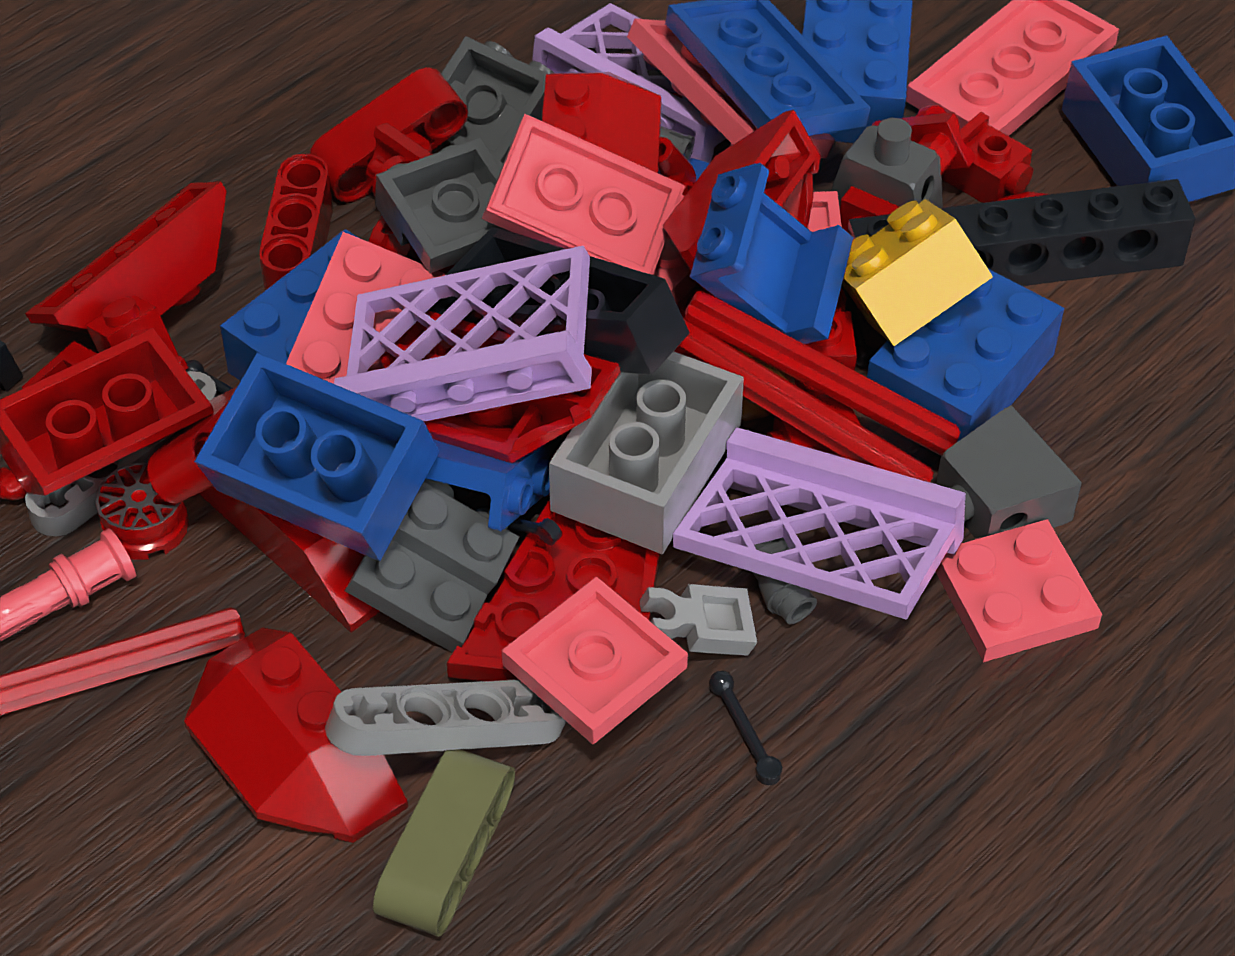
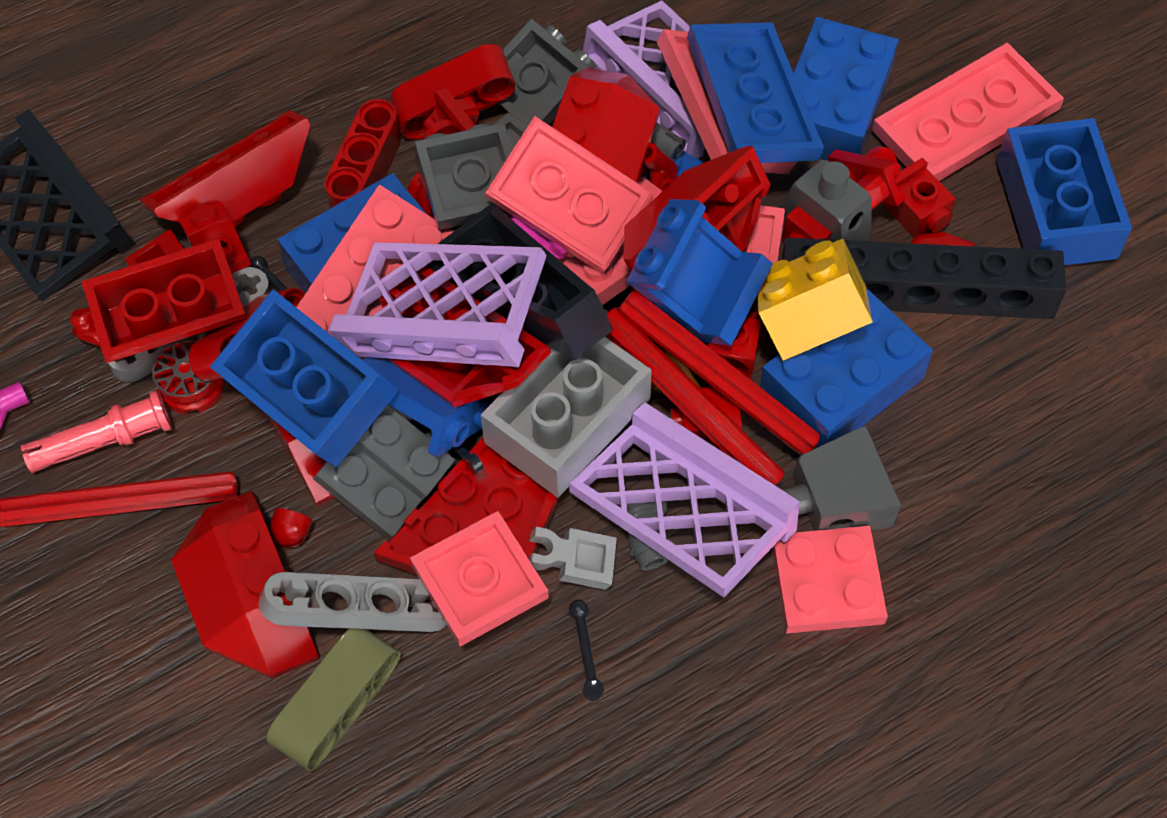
camera: 15 degrees right, 10 degrees up
(331, 652) = (289, 527): none -> red hinge

